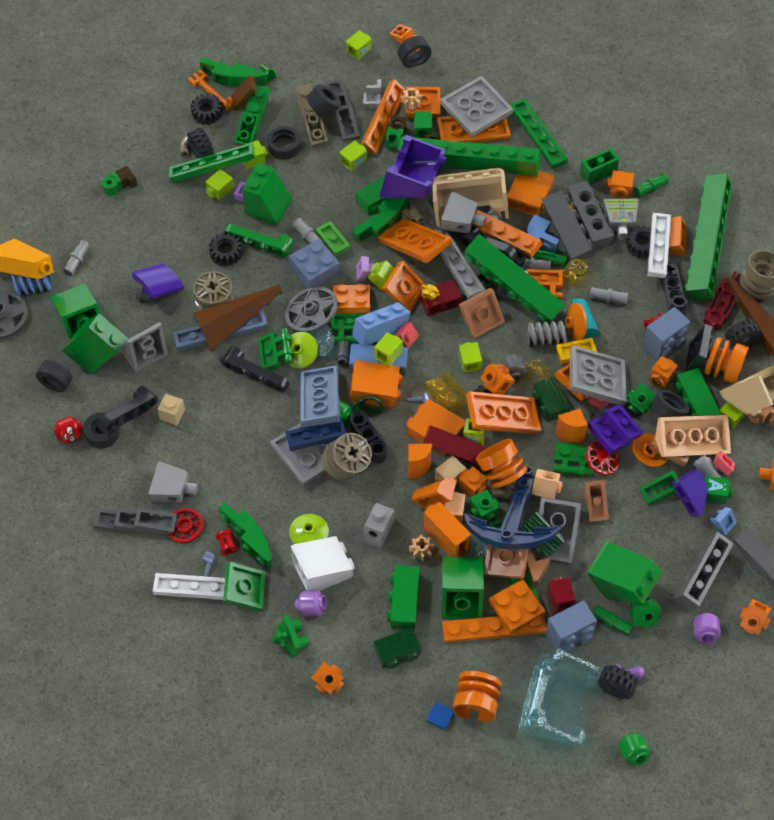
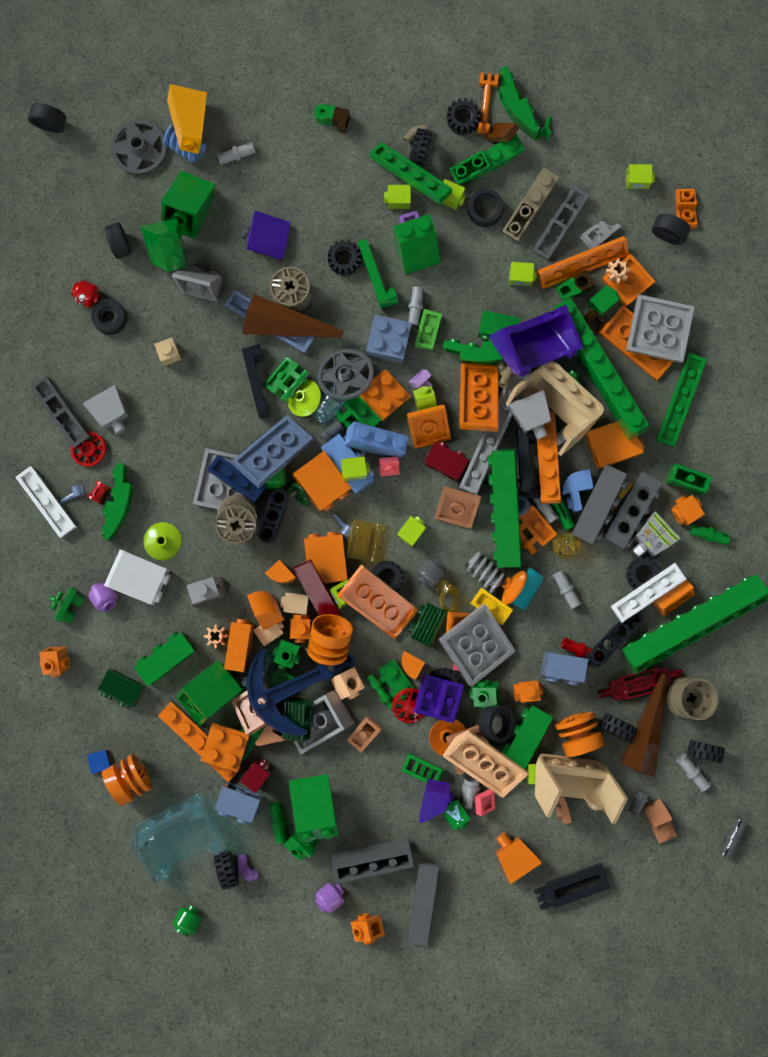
camera: 50 degrees right, 25 degrees up
(142, 402) = (161, 324): black beam -> none
(244, 586) = (72, 538): green plate -> none
(323, 100) = (548, 204): black tyre -> none
(429, 291) = (436, 453): yellow plate -> none
(497, 379) = (400, 573): orange brick -> none
(698, 348) = (571, 703): black plate -> none
(724, 520) = (433, 842): medium blue tile -> none

